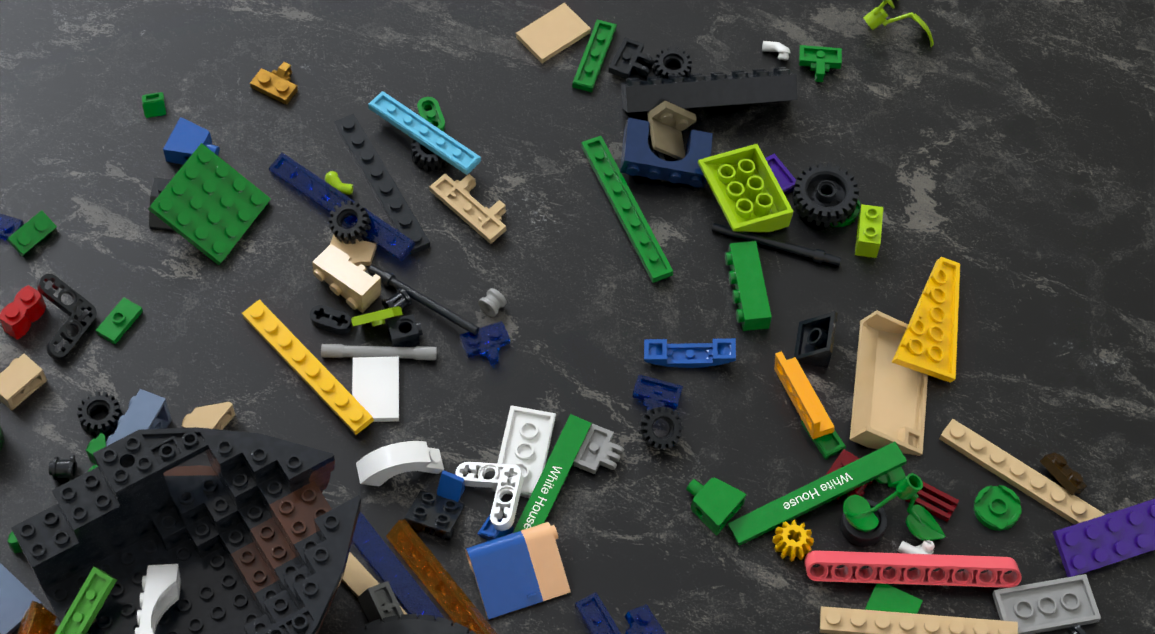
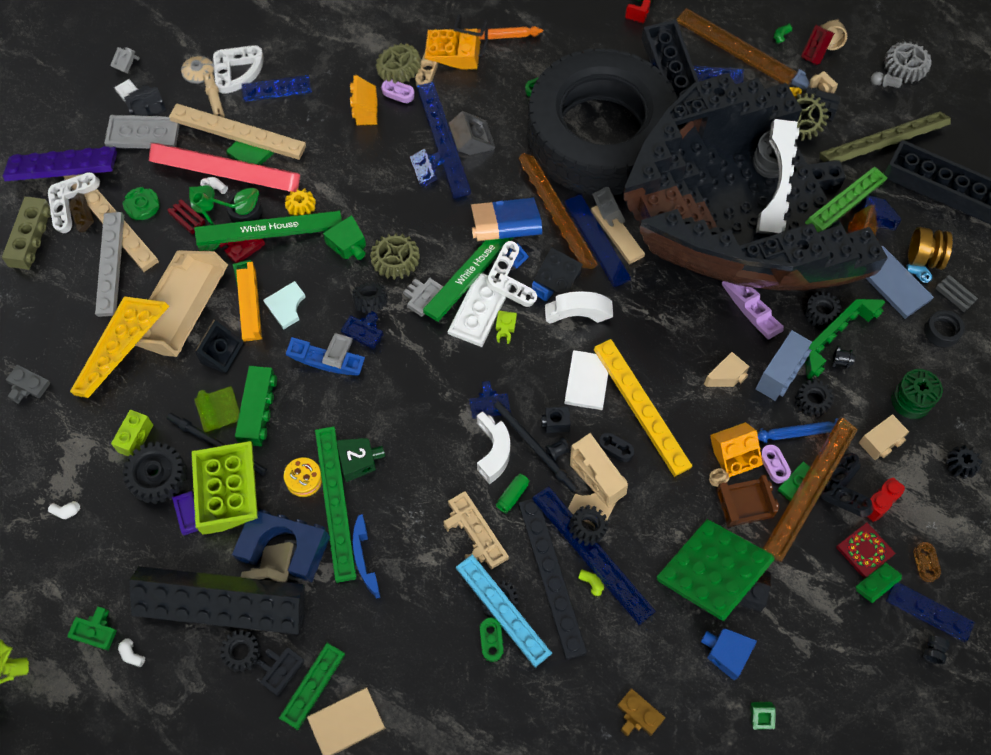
camera: 165 degrees left, 5 degrees up
(44, 259) = (865, 550): none -> tile
(104, 306) = (810, 489): none -> clear orange plate
(115, 376) = (796, 431): none -> blue wheel
(147, 333) = (774, 465): none -> lavender plate
(178, 288) = (747, 501): none -> reddish brown panel
(191, 337) = (737, 449): none -> light orange slope
(210, 305) = (718, 476): none -> tan plate
(341, 351) = (612, 417): light grey piece -> none
(377, 317) = (575, 429): lime plate -> none
(438, 250) = (512, 493): none -> green piece
(463, 276) = (496, 461): none -> white arch
(487, 438) = (505, 324): none -> lime plate
(492, 302) = (476, 432): light grey wheel -> none
(568, 143) = (359, 535): none -> blue slope
(617, 253) = (358, 457): none -> dark green torso
(647, 479) = (399, 248): none -> olive gear
(670, 225) = (303, 477): none -> yellow head
(678, 361) = (337, 350): none -> light grey tile
(762, 409) = (284, 304): none -> light aqua tile
(790, 278) = (217, 408): none -> clear neon green hinge
(906, 152) = (65, 511): none -> white arm
(992, 414) = (109, 264): none -> light grey plate
(1014, 267) = (25, 383): none -> dark grey hinge
(1101, 489) = (65, 194): none -> white beam
(1111, 401) = (27, 233): none -> olive brick

